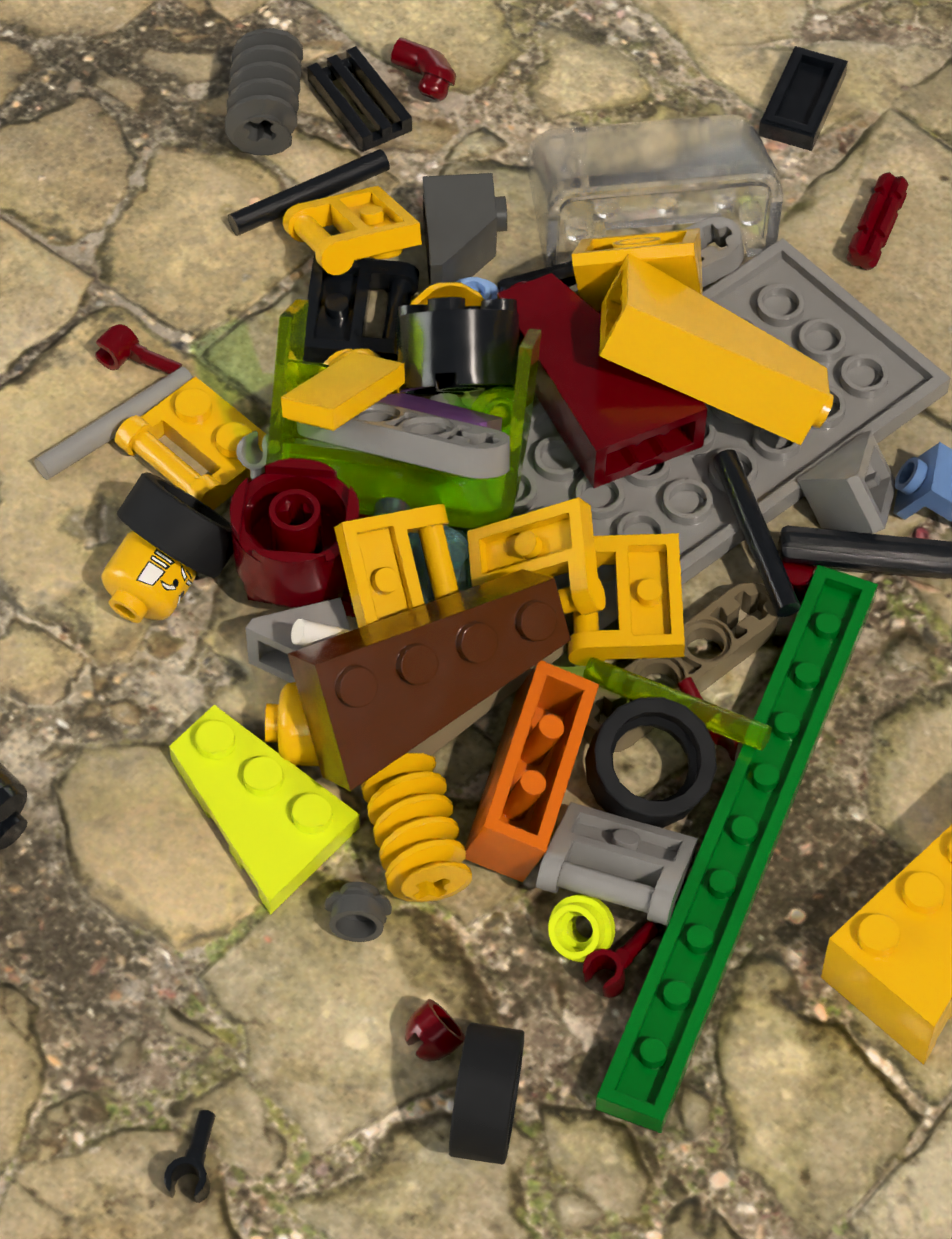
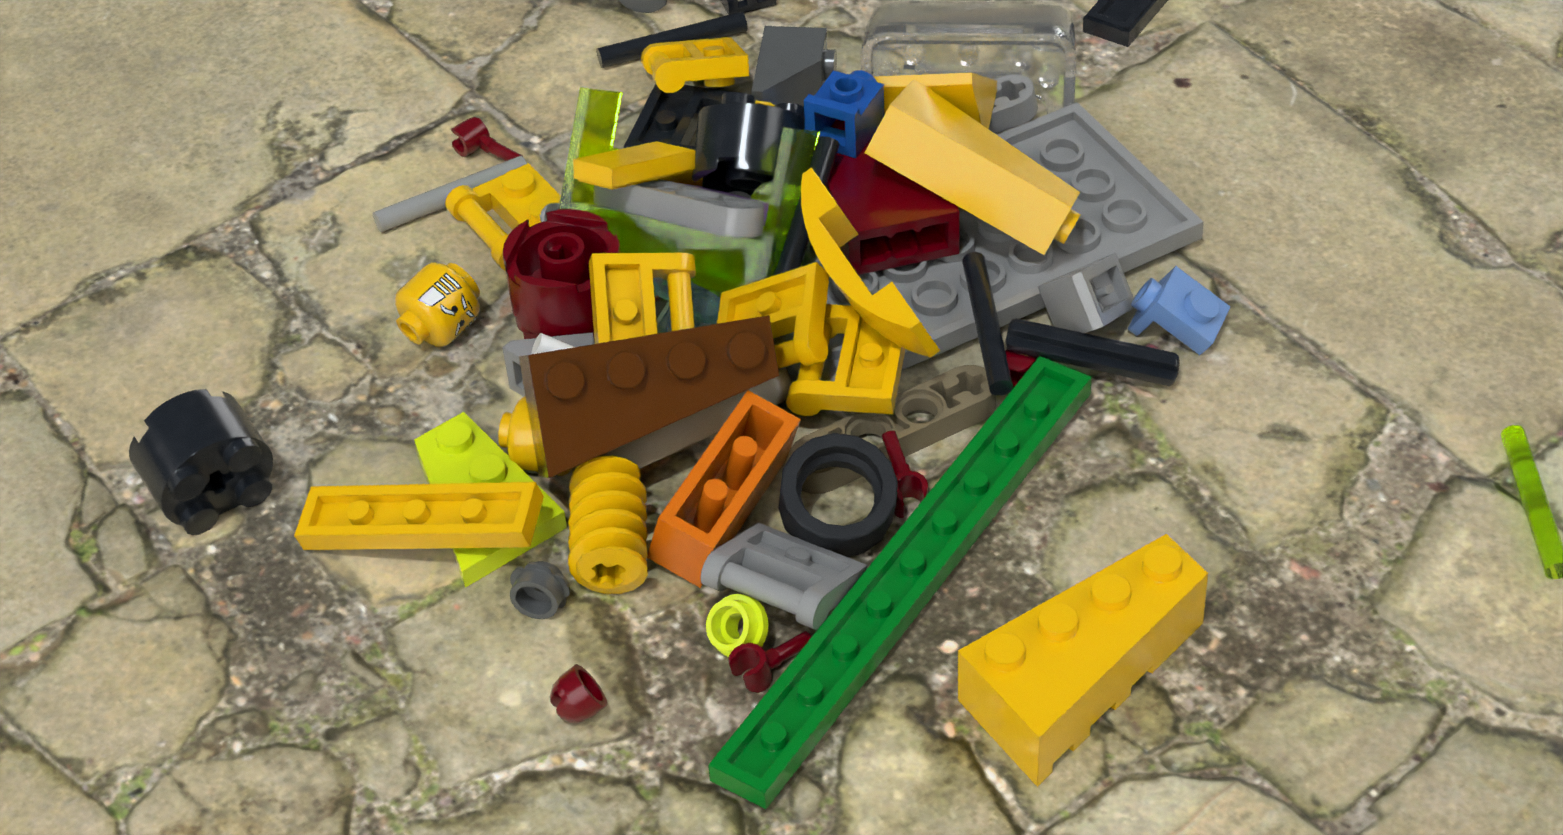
camera: 15 degrees right, 10 degrees down
(178, 524) = (467, 263): black tyre -> none
(194, 1159) = (326, 777): black hand -> none
(209, 845) = (420, 516): none -> yellow plate
(486, 1093) = (602, 744): black tyre -> none
(540, 425) = (797, 236): none -> black bar
(561, 287) = (849, 98): none -> blue brick
(670, 548) = (884, 310): none -> yellow slope
(715, 717) = (903, 462): clear neon green bar -> none
(877, 221) = (1171, 101): dark red axle -> none

